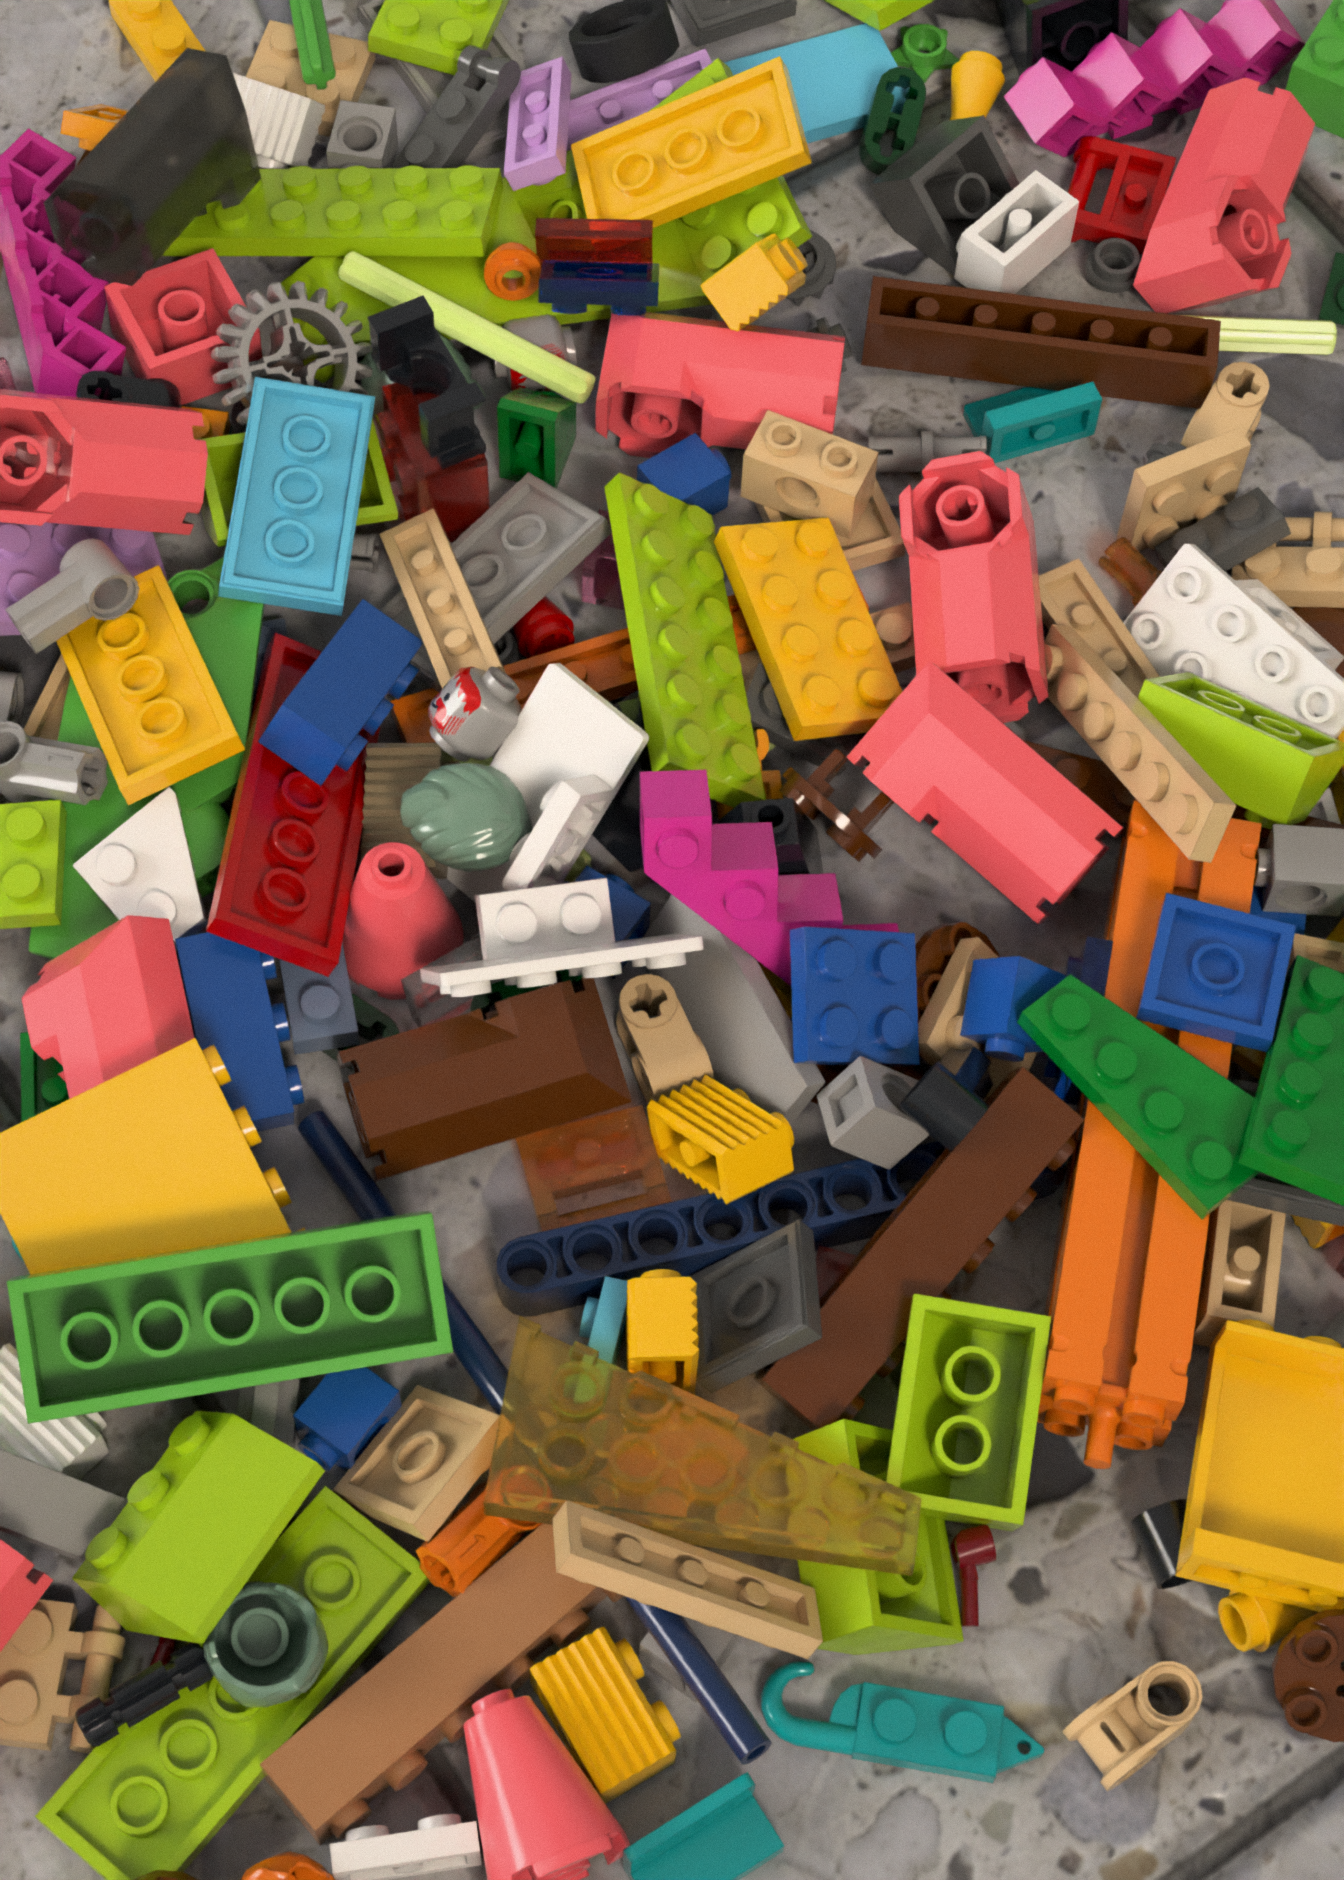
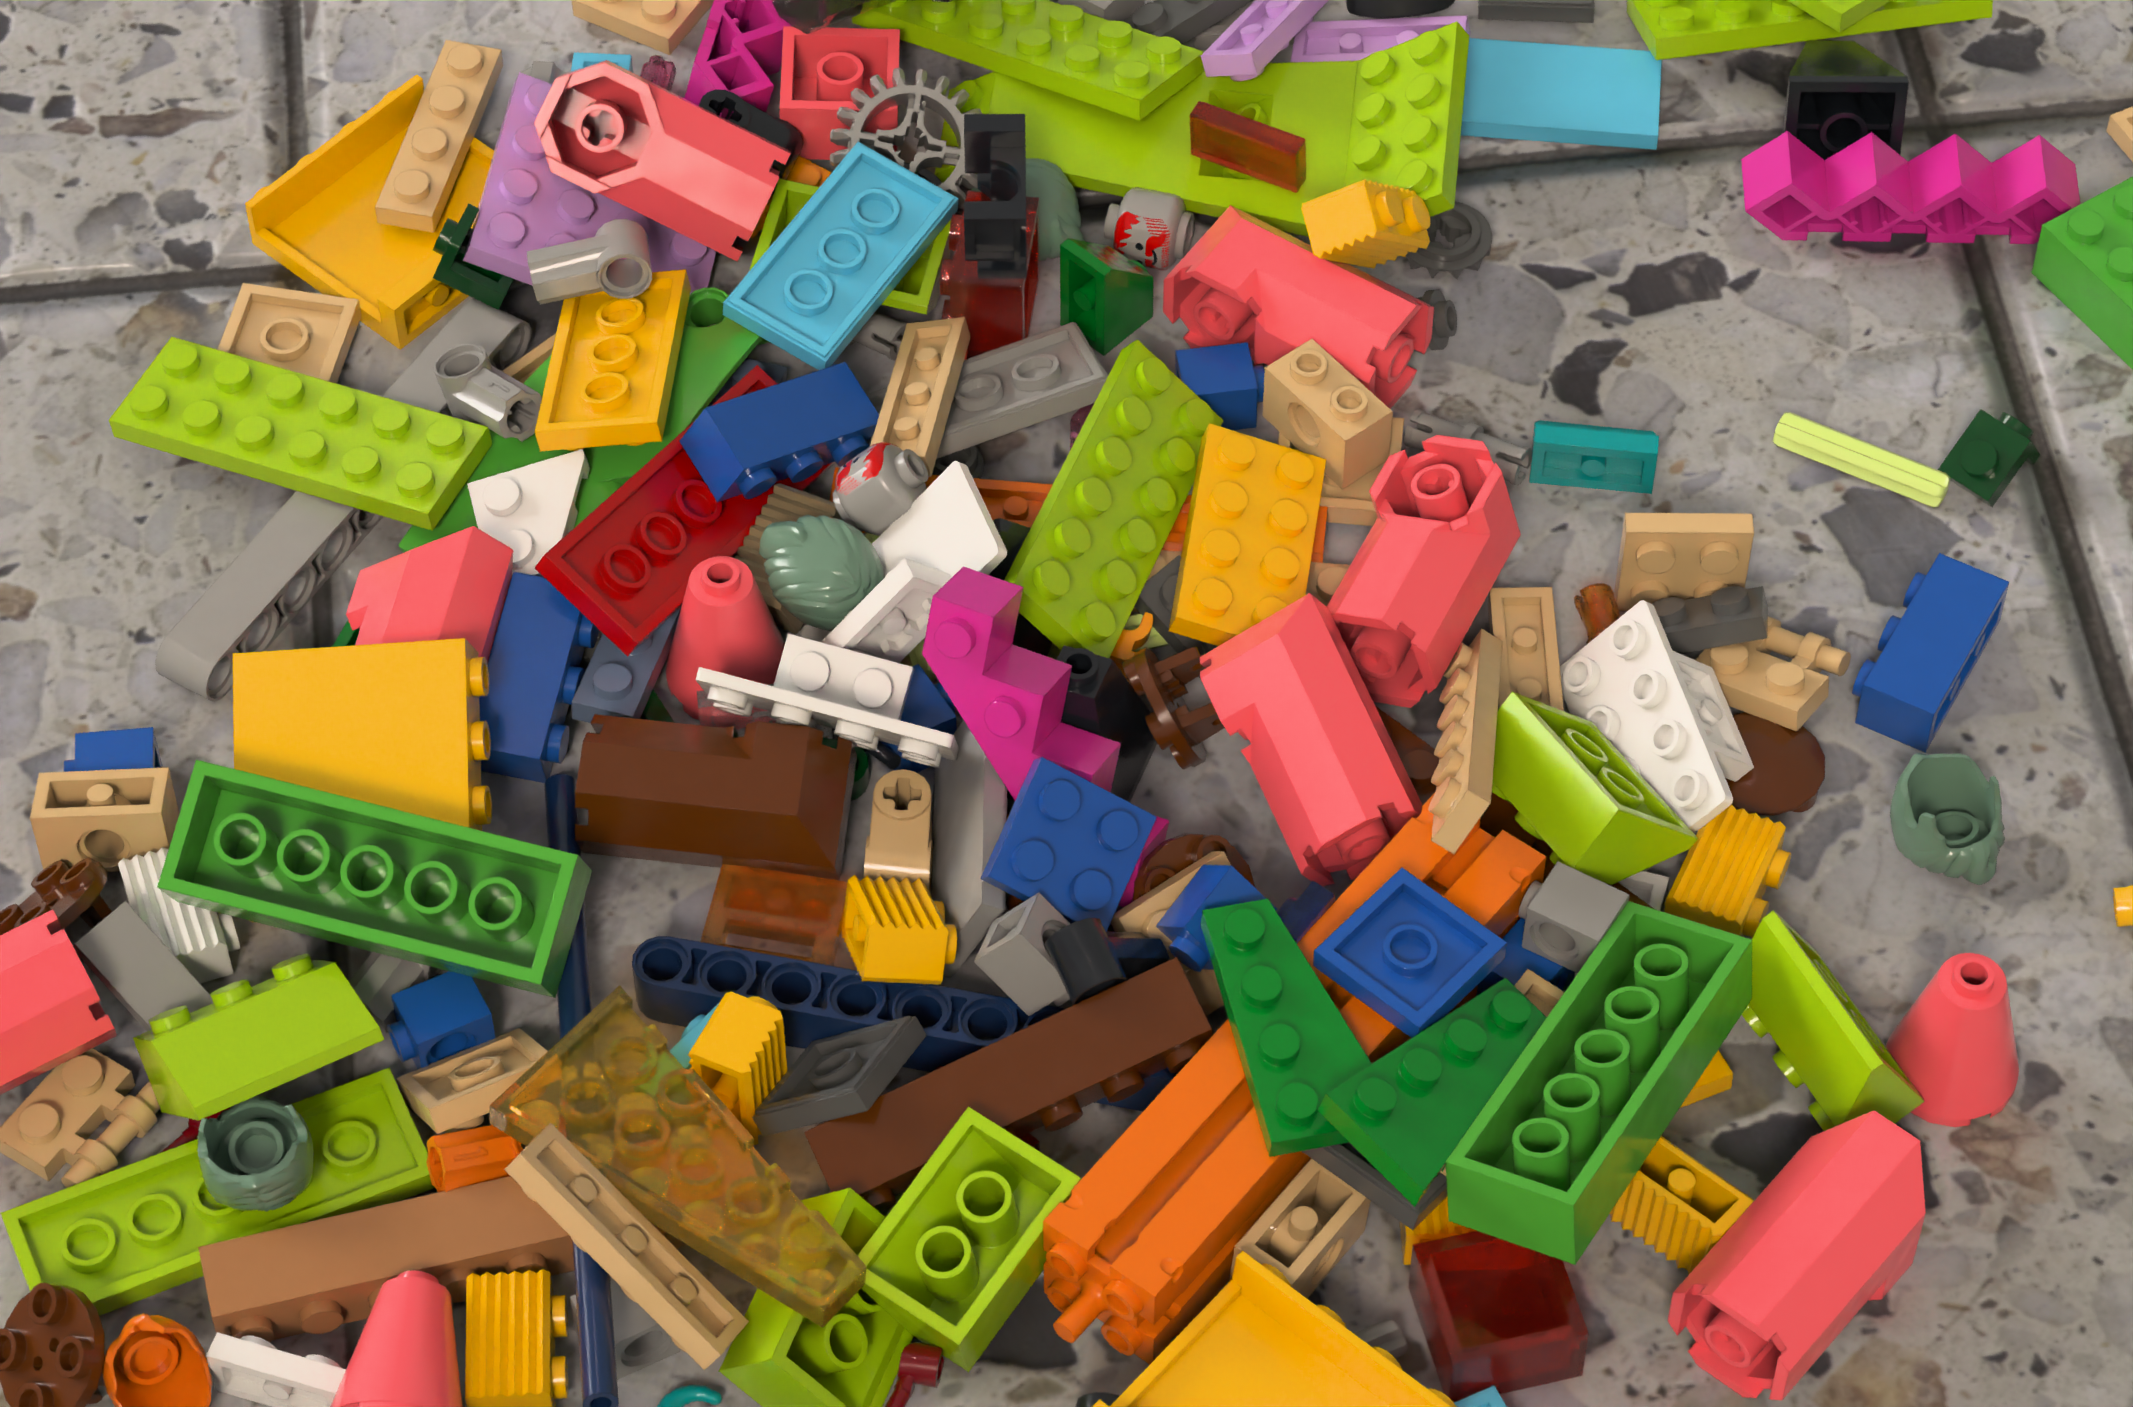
camera: 30 degrees right, 10 degrees down
(143, 1694) = (135, 1155): black axle -> none
(471, 328) = (1090, 177): yellowish green axle -> none
(507, 258) = (1170, 135): orange plate -> none
(543, 629) = (1011, 458): red cone -> none
(618, 284) = (1240, 185): clear blue plate -> none
(694, 149) = (1382, 91): yellow plate -> none
(881, 118) = (1610, 138): dark green beam -> none
(928, 39) = (1700, 84): bright green plate -> none
(944, 186) = (1639, 231): dark grey slope -> none
(975, 84) = (1719, 147): yellow cone -> none
(1016, 237) = (1668, 288): white brick -> none
(1040, 342) = (1634, 386): reddish brown brick -> none
(1113, 265) = (1762, 349): dark grey plate -> none
(1133, 193) = (1814, 298): red plate -> none
(1226, 200) = (1897, 325): coral brick -> none
(1231, 404) = (1788, 520): tan piece -> none

